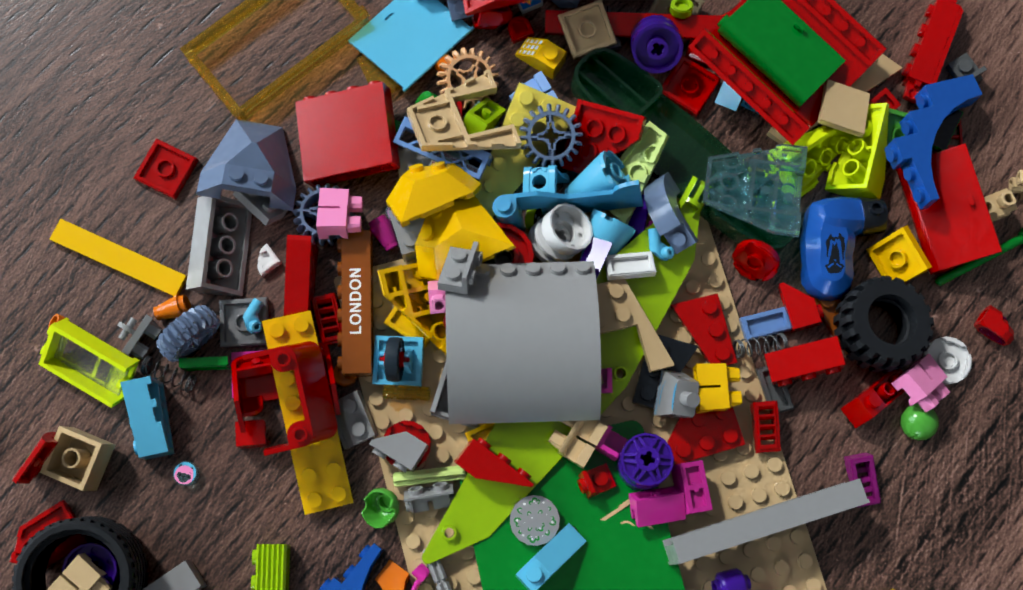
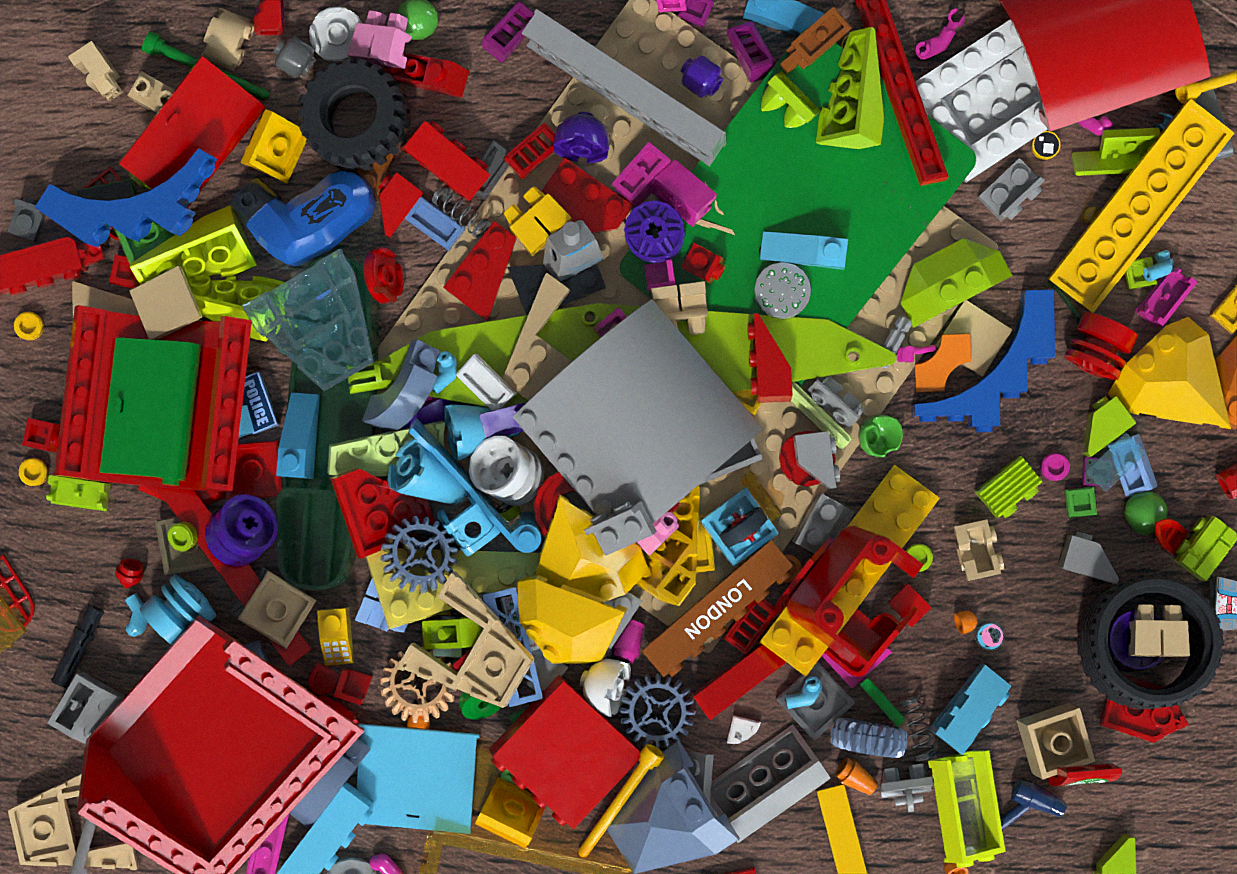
camera: 130 degrees left, 10 degrees up
(57, 414) = (1032, 796): none -> dark blue piece
(208, 464) = (965, 621): none -> orange hinge
(247, 510) = (977, 551): none -> tan cylinder
(278, 468) = (922, 554): none -> lime tile
(297, 182) = (650, 758): none -> yellow piece
(334, 213) = (653, 695): bright pink hips -> none
(338, 70) = (510, 813): none -> yellow bracket
(372, 189) = (605, 685): none -> white cylinder
(500, 40) = (353, 686): none -> red panel
(688, 125) = (299, 437): none -> dark azure slope
(731, 122) = (259, 403): none -> slope
(751, 466) = (582, 137): none -> dark purple cylinder
(892, 22) = (28, 326): none -> yellow tile
(952, 318) = (294, 56): none -> dark grey head
(999, 284) = (225, 39): none -> tan cylinder

